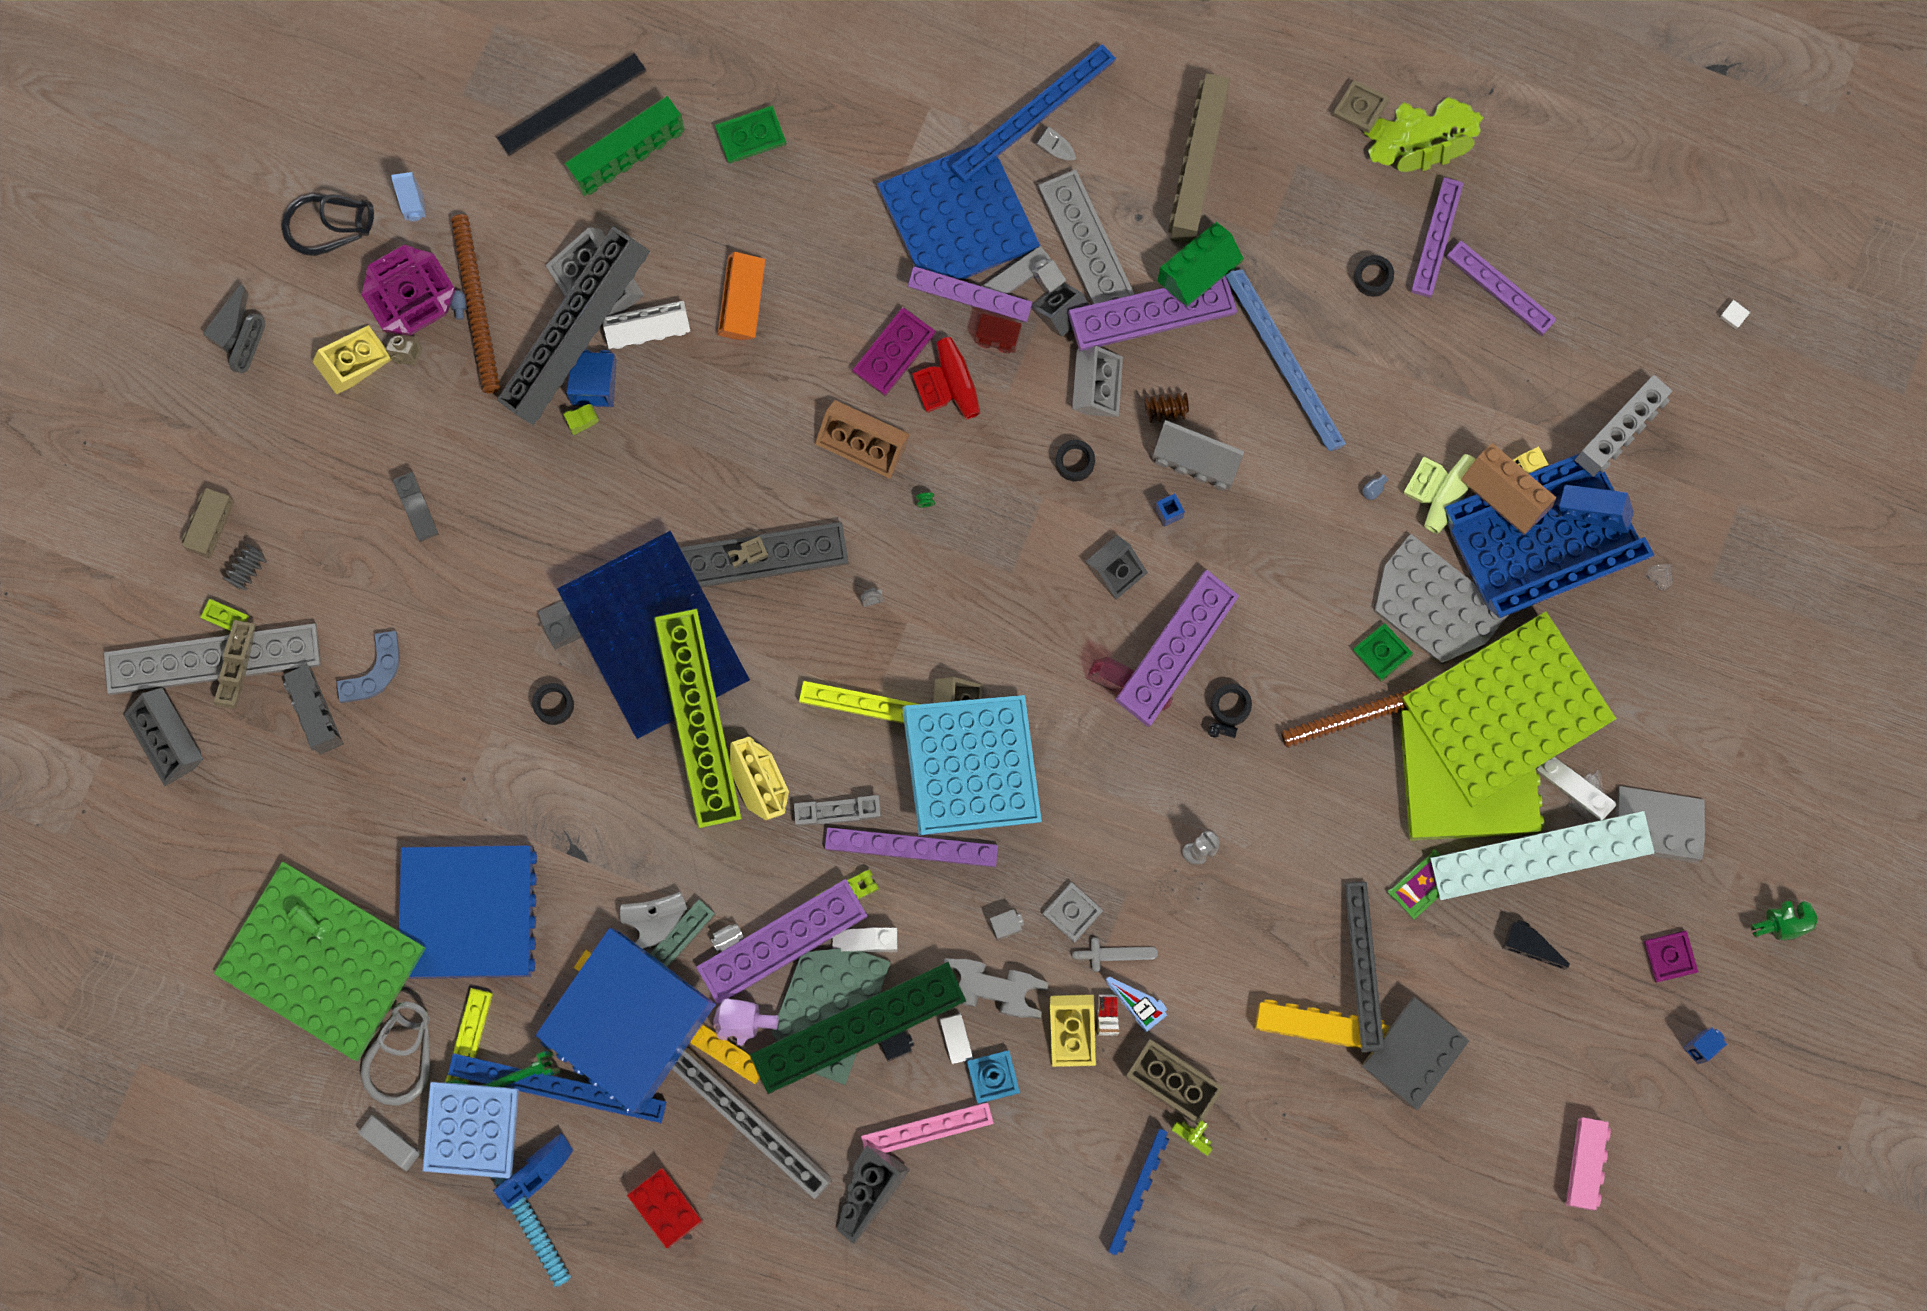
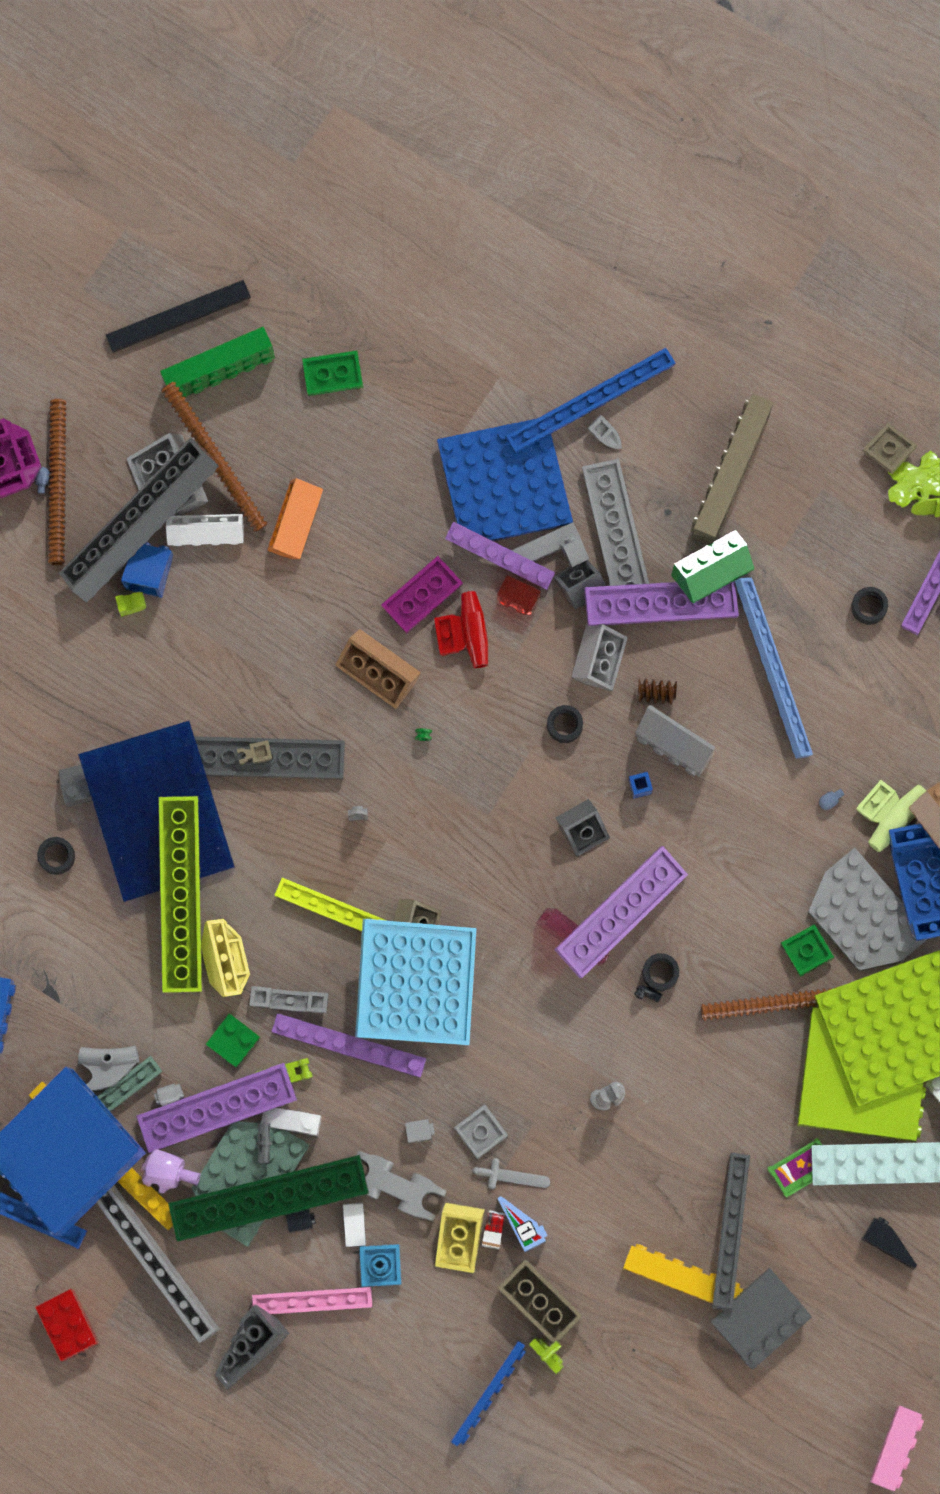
camera: 15 degrees right, 0 degrees up
(409, 196) = (16, 375): light blue slope -> none
(654, 258) = (223, 471): none -> dark orange piece
(784, 866) = (233, 1040): none -> green plate
(841, 969) = (263, 1143): none -> dark grey pin

